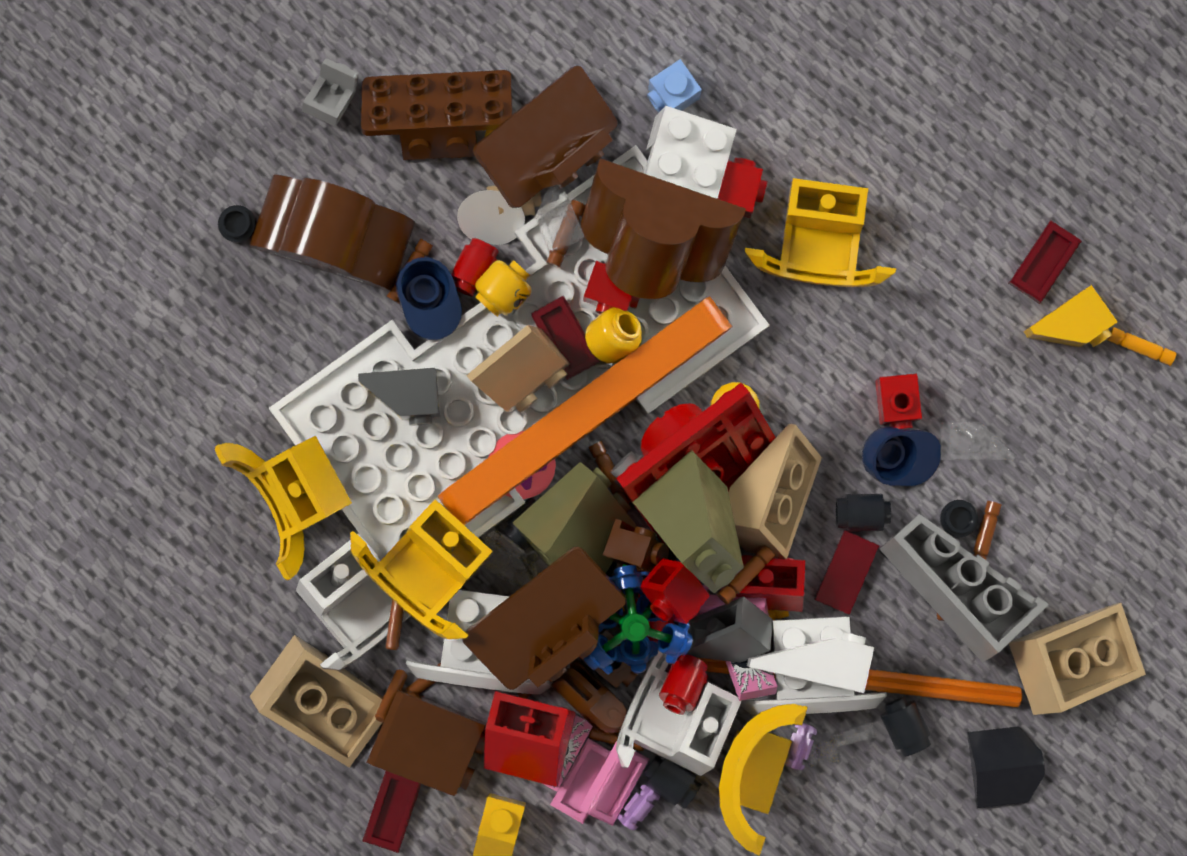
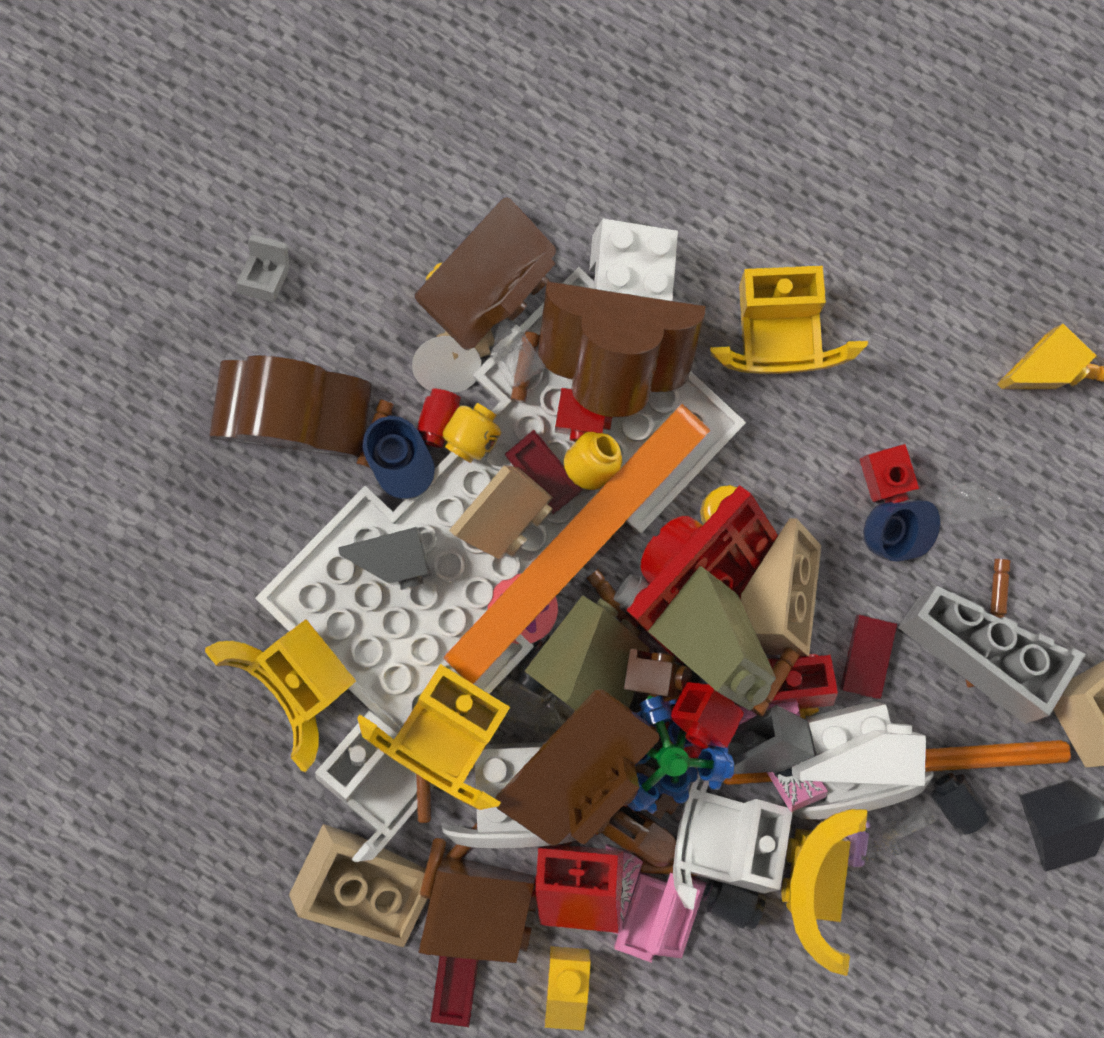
camera: 10 degrees left, 0 degrees up
(237, 224) = (193, 417): black plate -> none
(436, 110) = (372, 270): reddish brown bracket -> none
(638, 807) = (704, 935): lavender piece -> none
(673, 88) = (606, 201): light blue brick -> none
(684, 684) = (730, 806): red brick -> none
(743, 185) = (694, 284): red brick -> none
(862, 512) = (874, 594): black brick -> none
(959, 518) = (971, 581): black plate -> none
(1045, 262) = (1005, 310): dark red tile -> none

